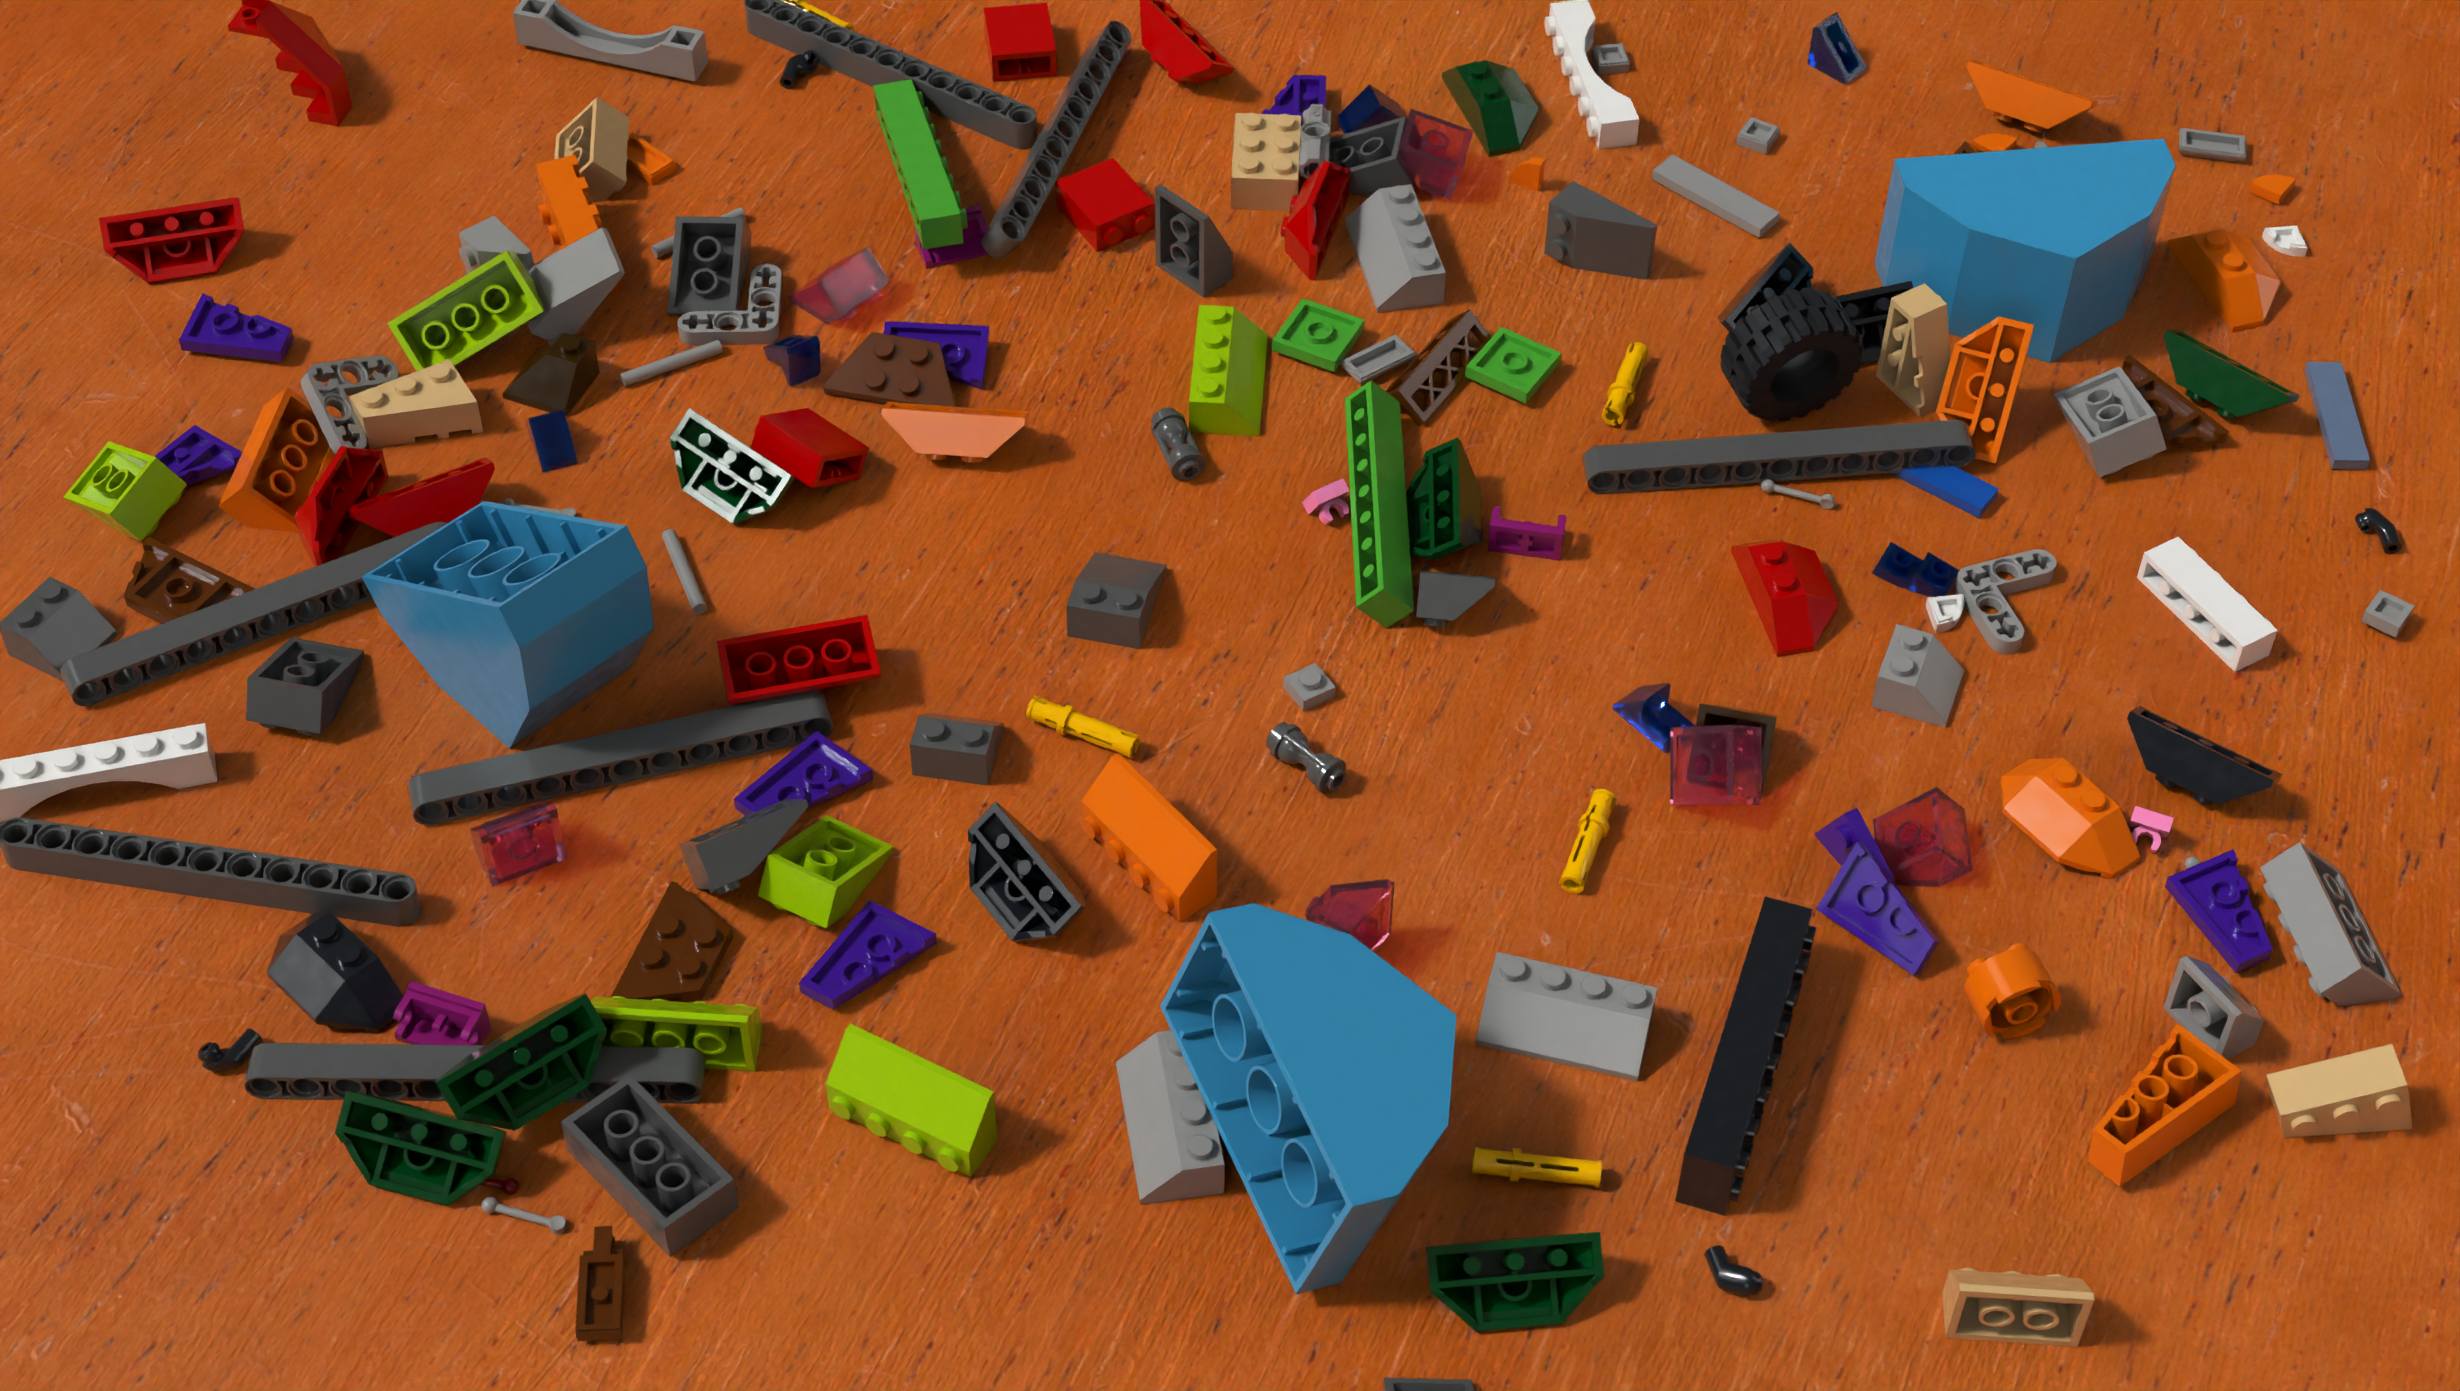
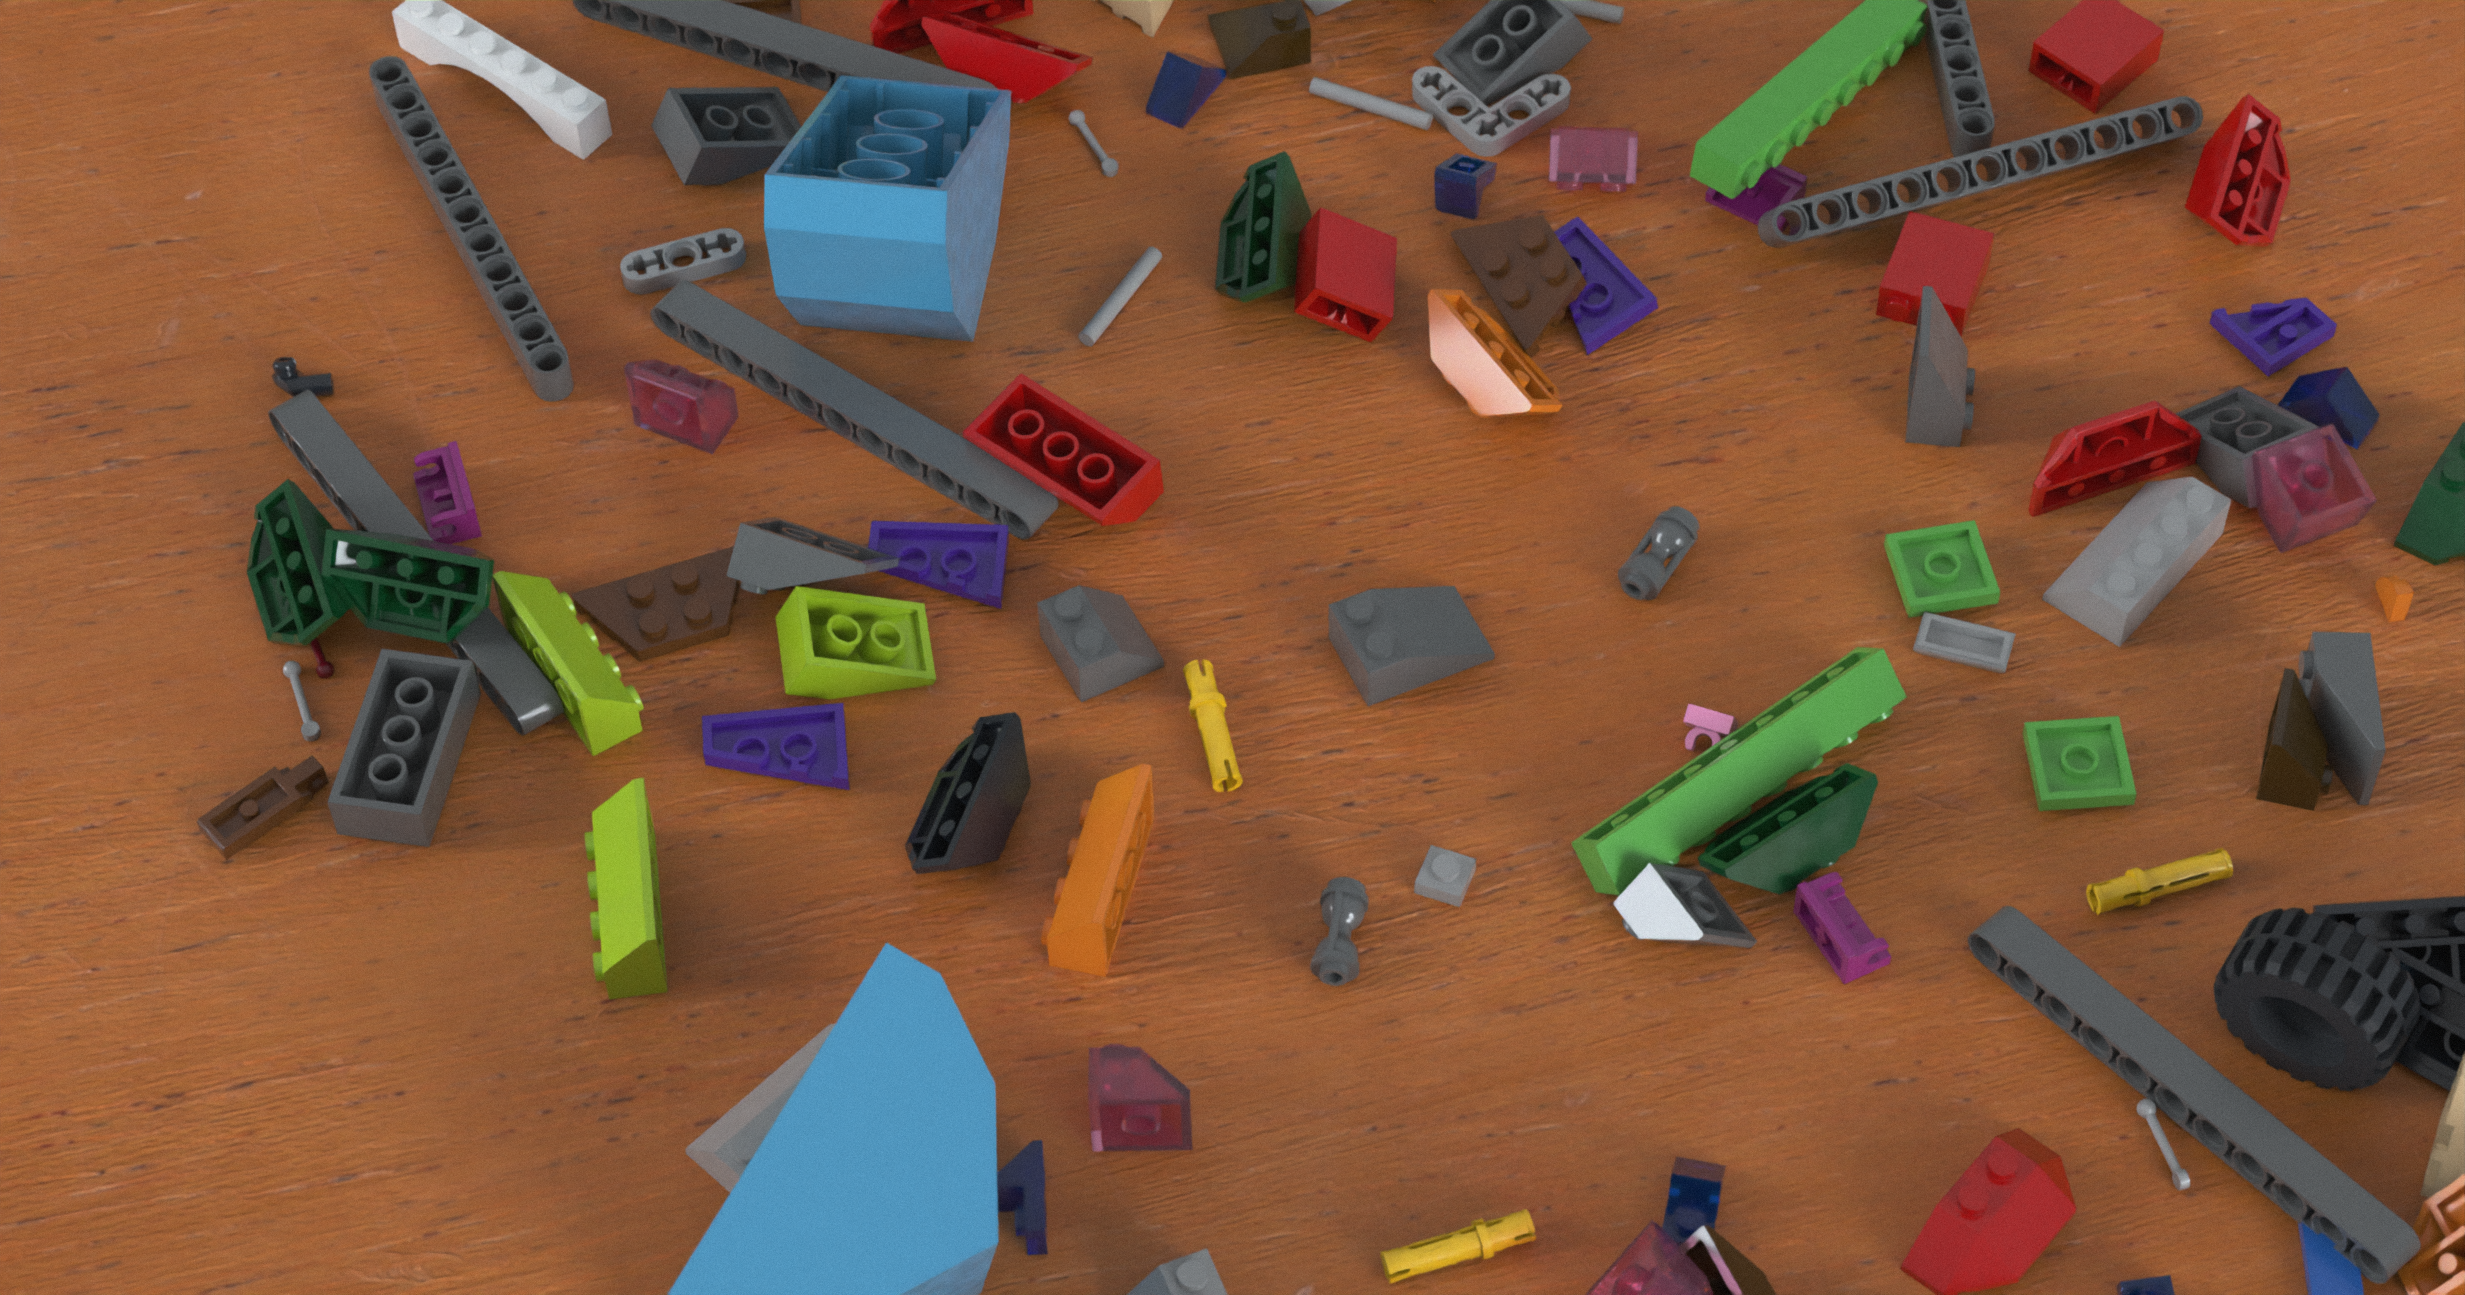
camera: 55 degrees right, 5 degrees up
(334, 975) = (433, 386): black wedge -> none
(382, 791) = (709, 242): none -> light grey beam
(1227, 373) = (1801, 527): lime slope -> none
(1265, 161) = (2145, 355): tan brick -> none
(1314, 139) = (2211, 378): light grey piece -> none
(1428, 360) = (1999, 684): reddish brown fence -> none
(1594, 272) = (2294, 750): none -> dark brown slope

